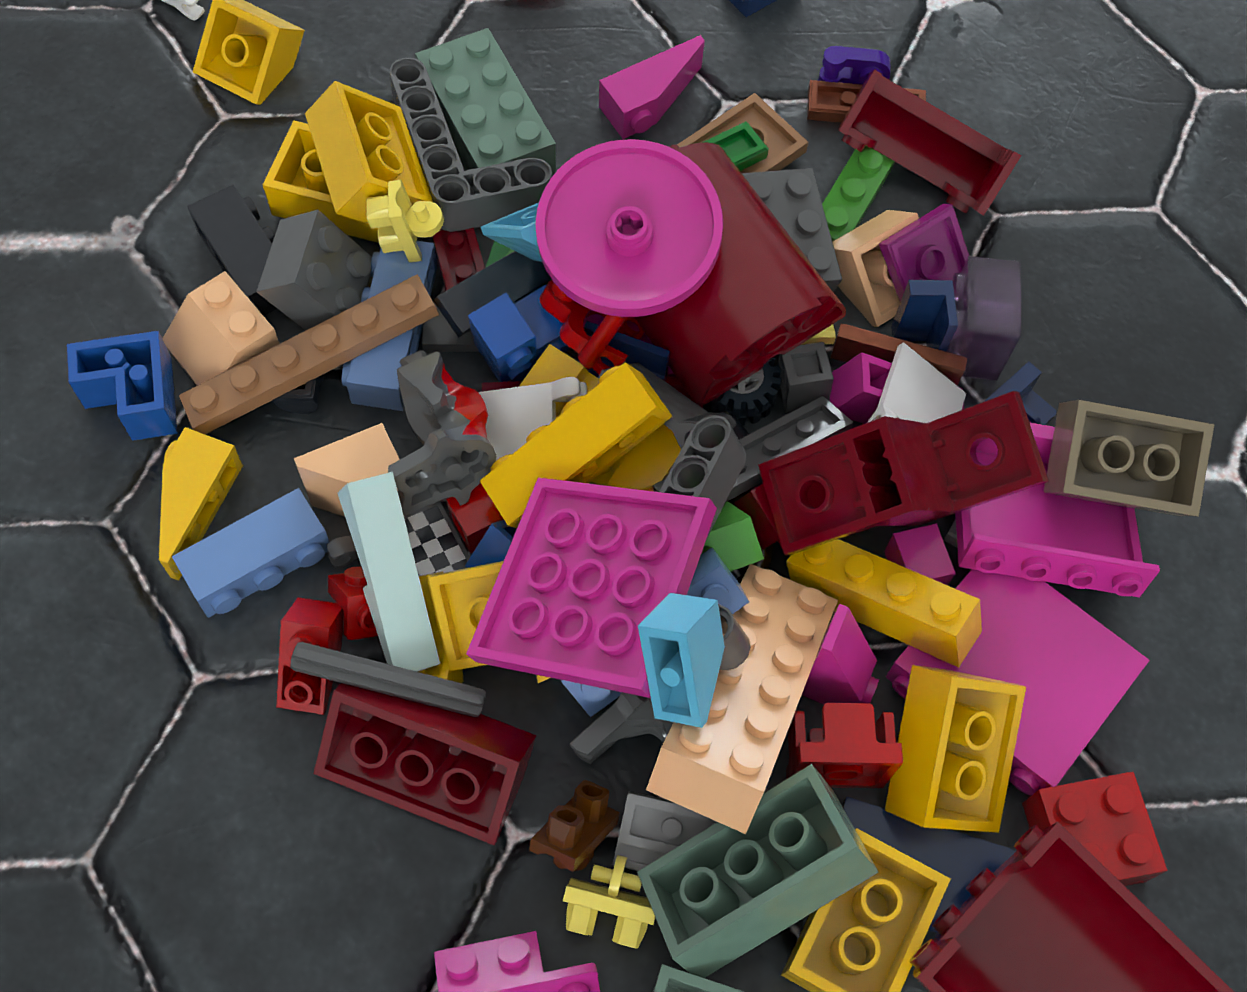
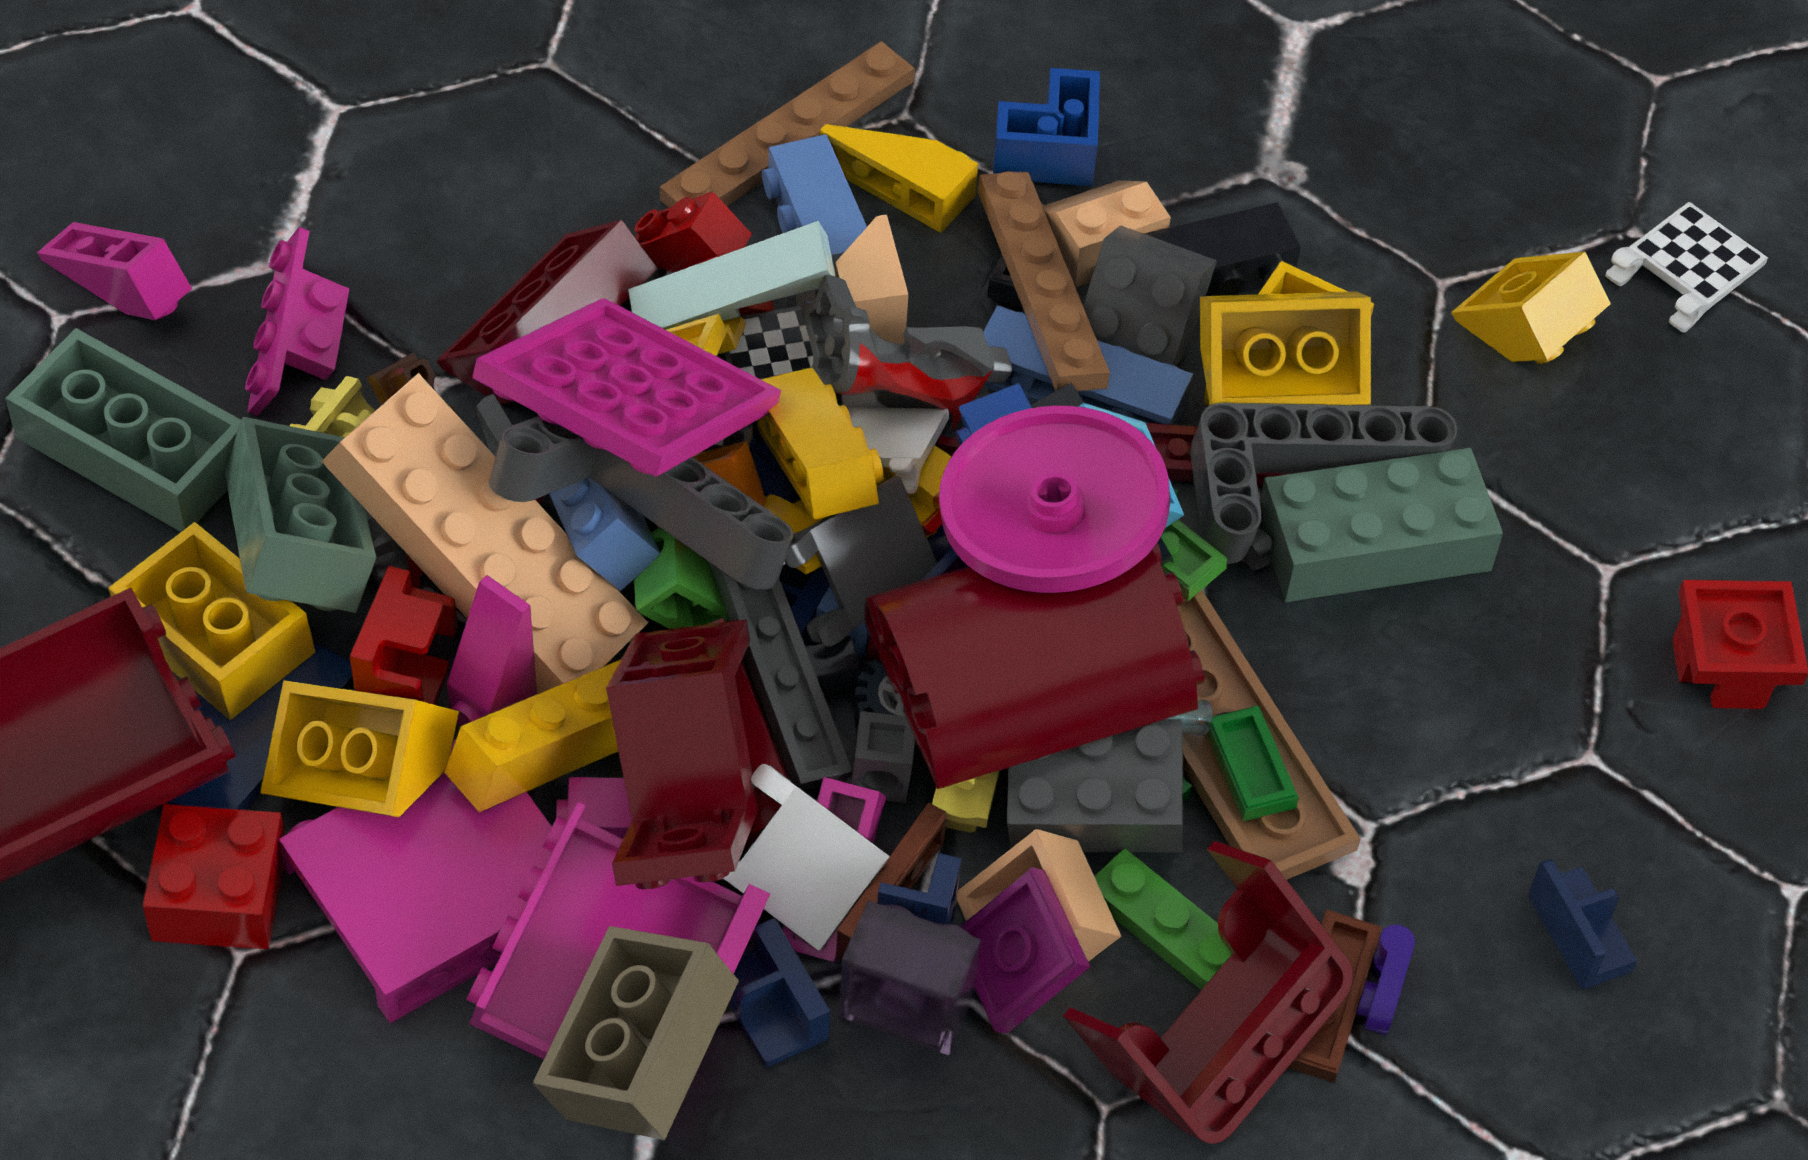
camera: 105 degrees right, 10 degrees down
(153, 610) = (832, 101): none -> medium nougat plate
(388, 679) = (638, 247): dark grey axle -> none
(401, 222) = (1180, 360): light yellow hips -> none
(645, 91) = (1392, 722): dark pink slope -> none
(682, 657) = (499, 391): medium azure slope -> none

